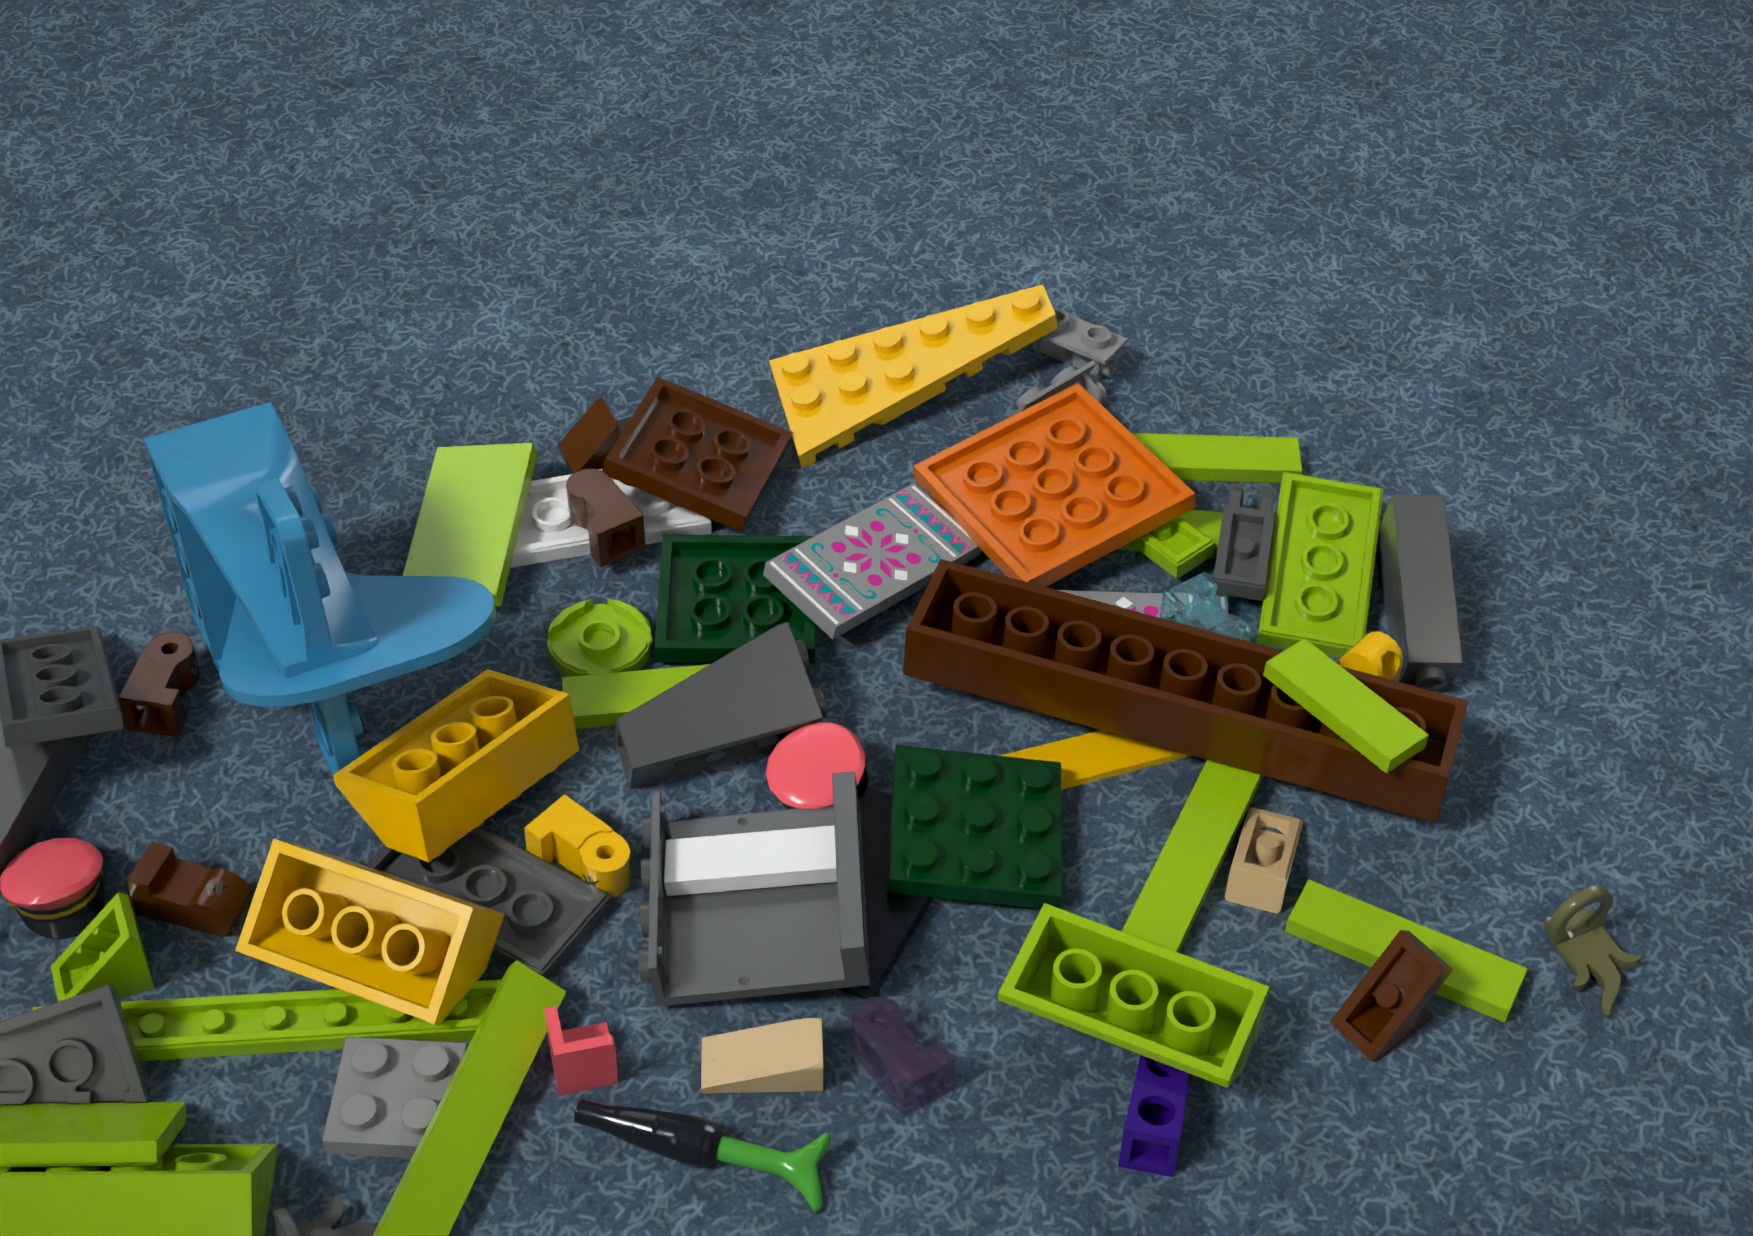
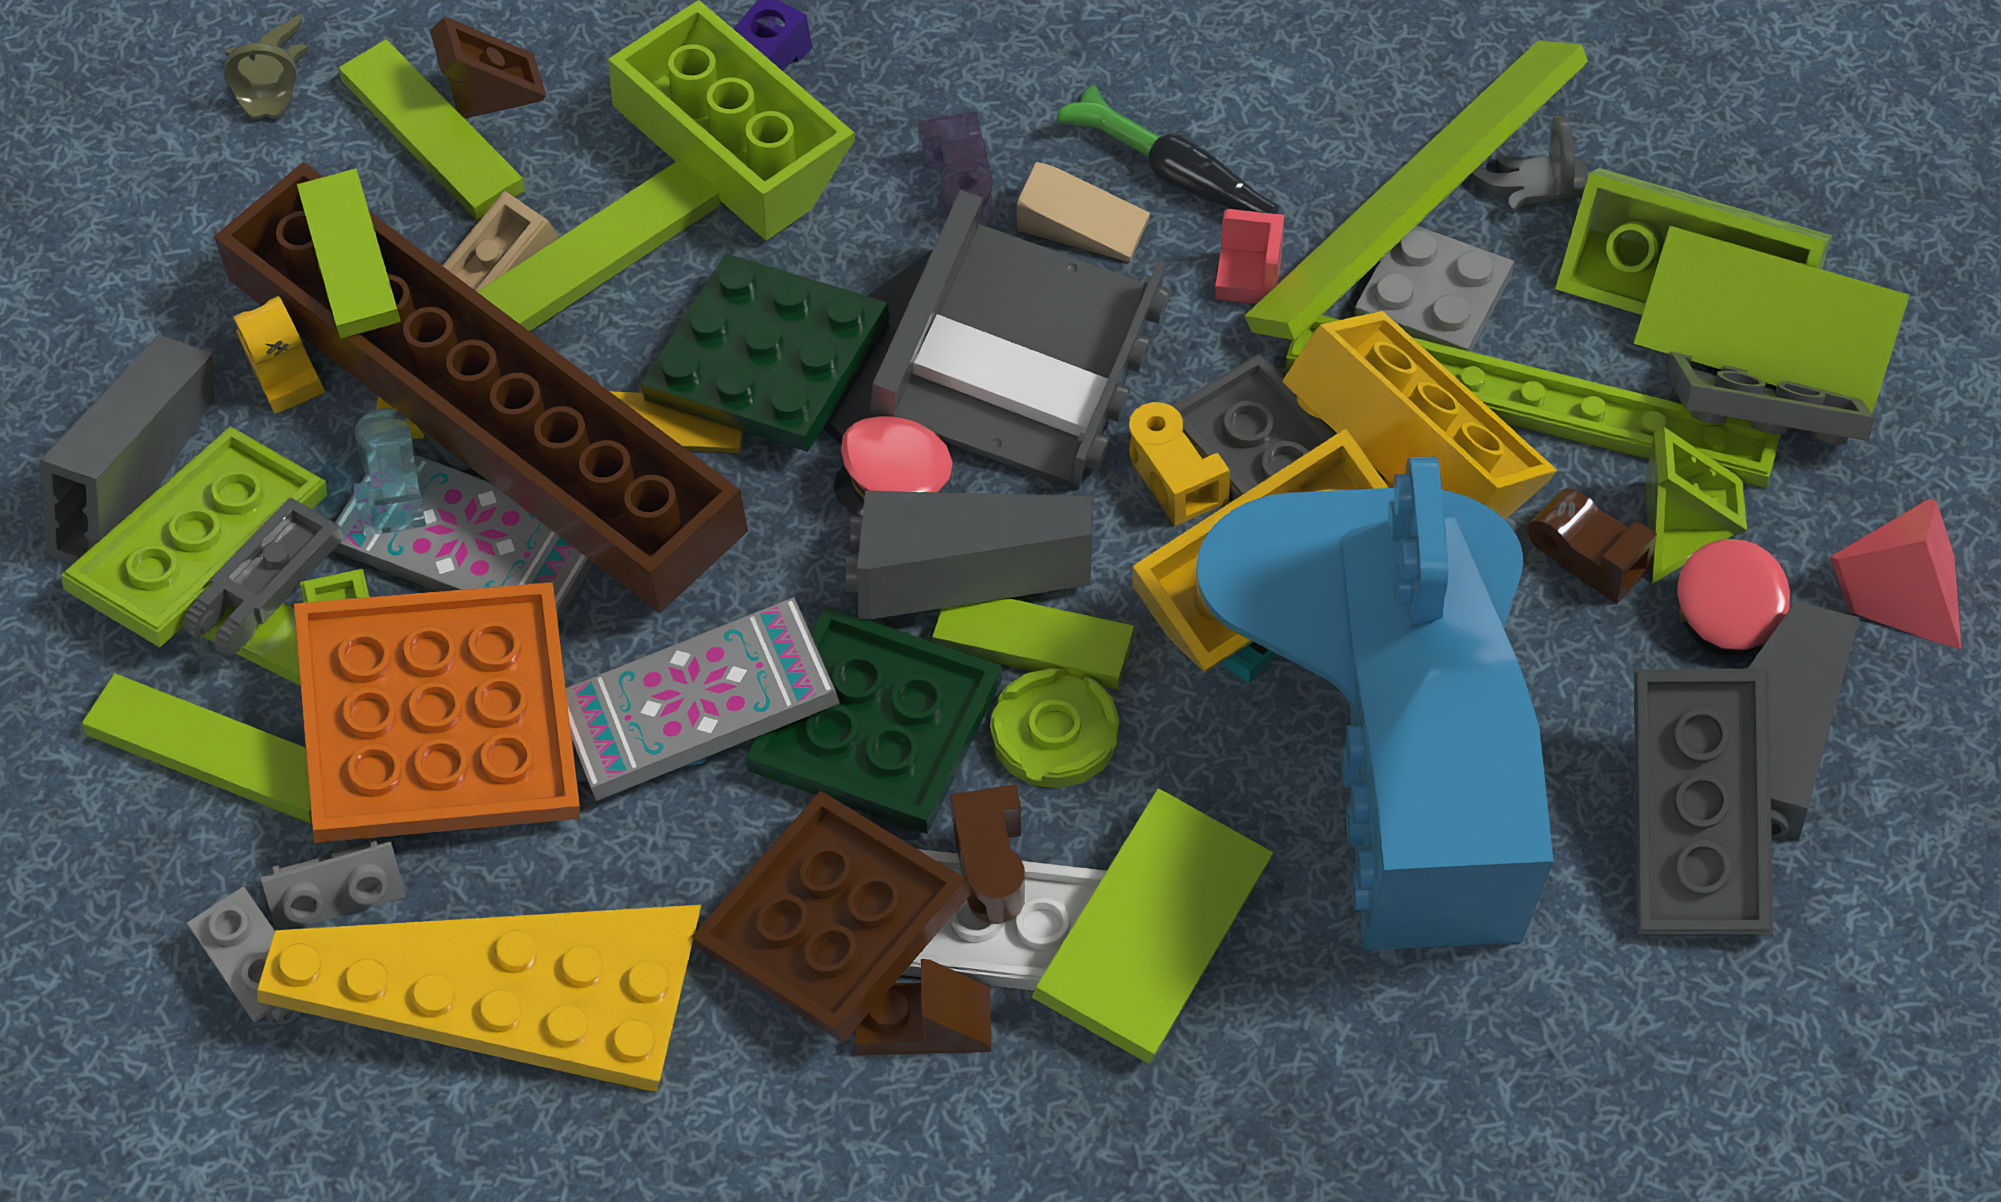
camera: 155 degrees left, 10 degrees up
(157, 684) = (1588, 805): reddish brown leg -> none

